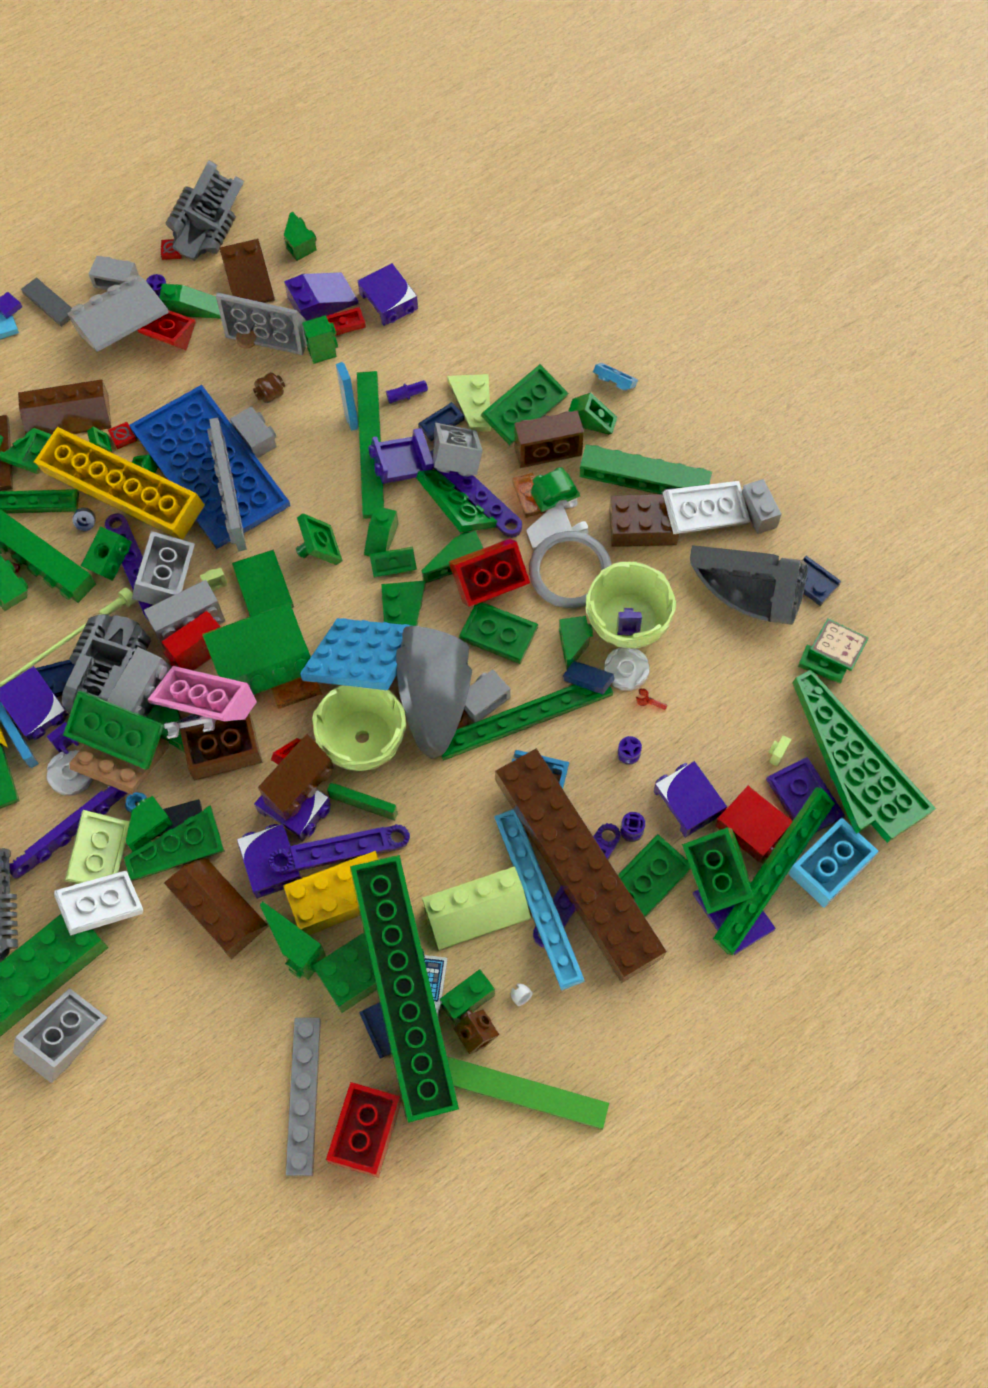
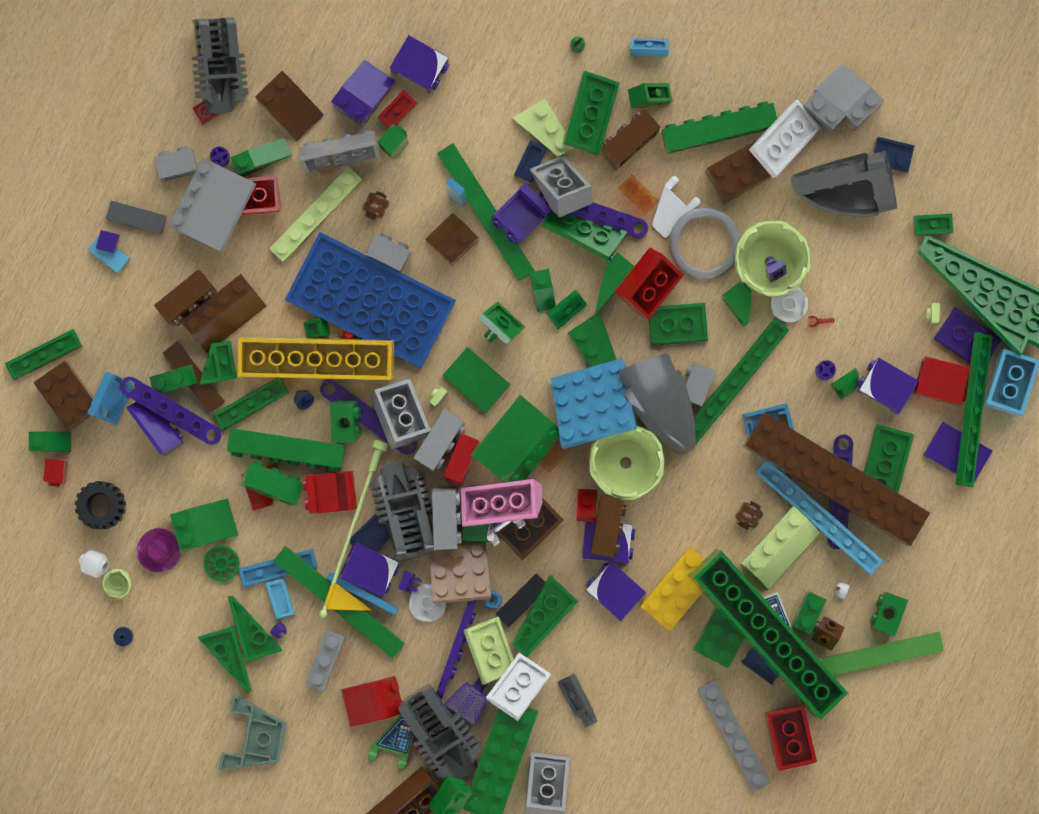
camera: 30 degrees left, 20 degrees up
(35, 372) = (185, 298): none -> reddish brown brick
(36, 894) = (468, 701): none -> dark purple torso
(43, 611) = (330, 492): none -> red piece
(99, 438) = (269, 325): green tile -> none
(113, 730) = (451, 561): green tile -> none
(122, 435) = (282, 309): red tile -> none
(146, 823) = (513, 611): green slope -> none
(155, 957) = (577, 699): none -> dark grey hinge
(209, 373) = (315, 214): none -> yellowish green plate
(216, 906) = (598, 642): reddish brown slope -> none
(226, 485) = (410, 323): light grey plate -> none
(296, 946) = (674, 643): green slope -> none
(298, 238) = (310, 47): green slope -> none
(323, 452) = (452, 239): none -> reddish brown slope
(338, 849) = (661, 557): dark purple plate -> none
(362, 801) = (655, 512): green tile -> none
(406, 391) = (487, 149): dark purple axle -> none
(461, 856) = (749, 515): none -> reddish brown piece
(547, 346) = (580, 47): none -> green hinge
(552, 1062) = (897, 606): none -> green brick
(553, 488) = (658, 184): green cylinder -> none
(588, 677) = (767, 329): dark blue tile -> none
(630, 831) = (854, 429): dark purple wheel -> none
(644, 774) = (846, 384): none -> green brick
(719, 870) = (936, 432): green slope -> none
(800, 509) = (850, 96): none -> light grey slope
(839, 644) = (938, 203): piece -> none

